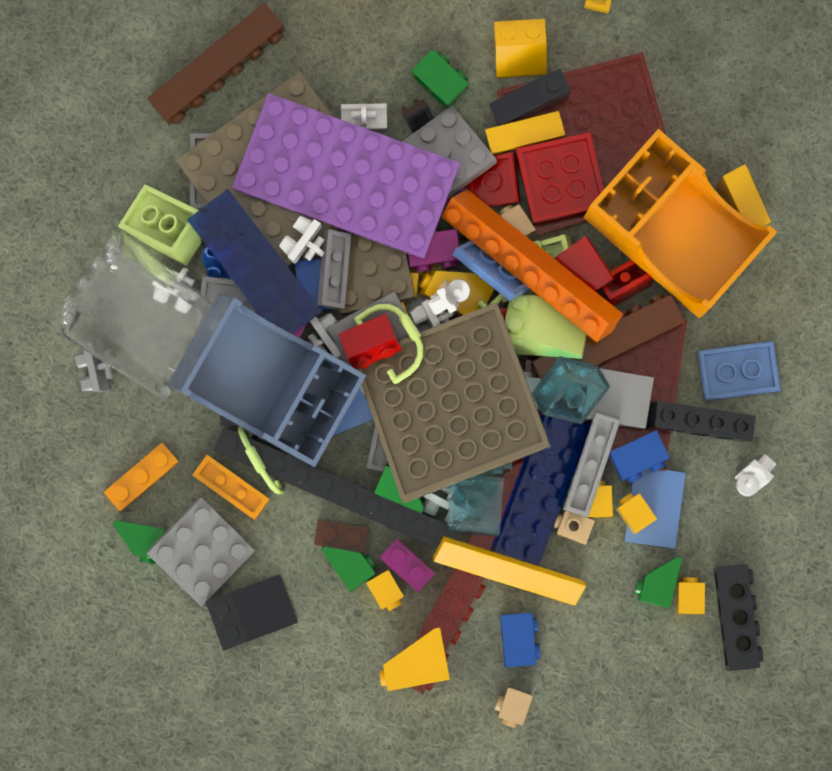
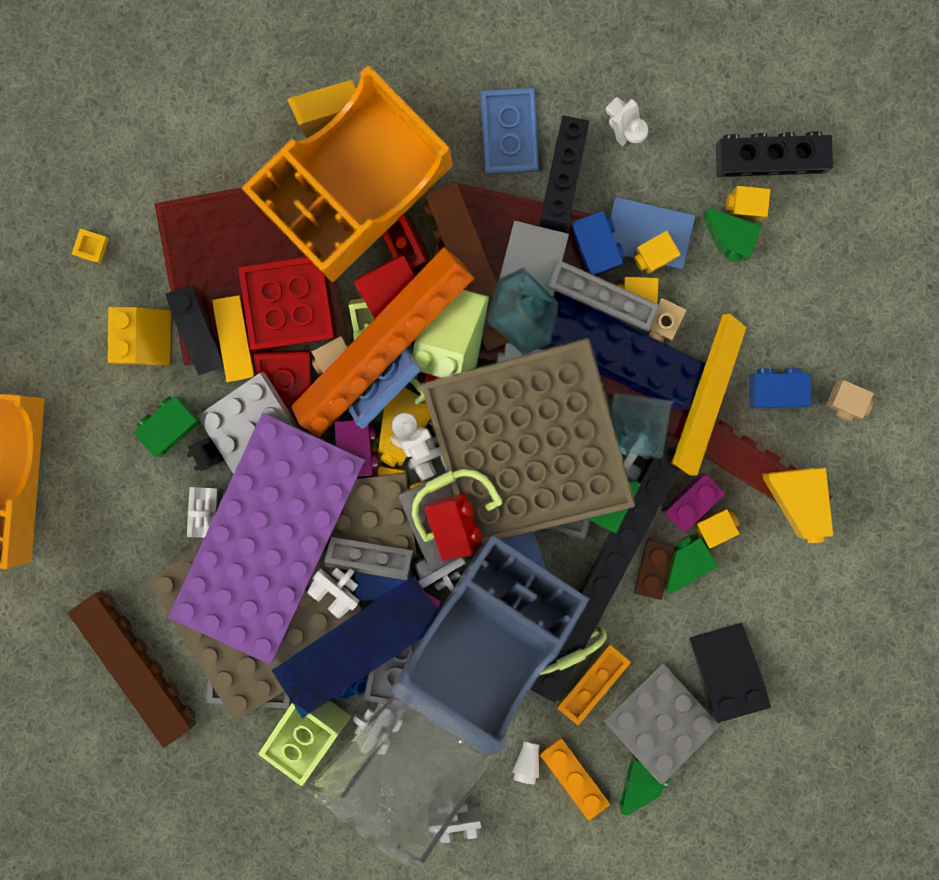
camera: 80 degrees left, 5 degrees up
(152, 431) = (527, 764): none -> white cone

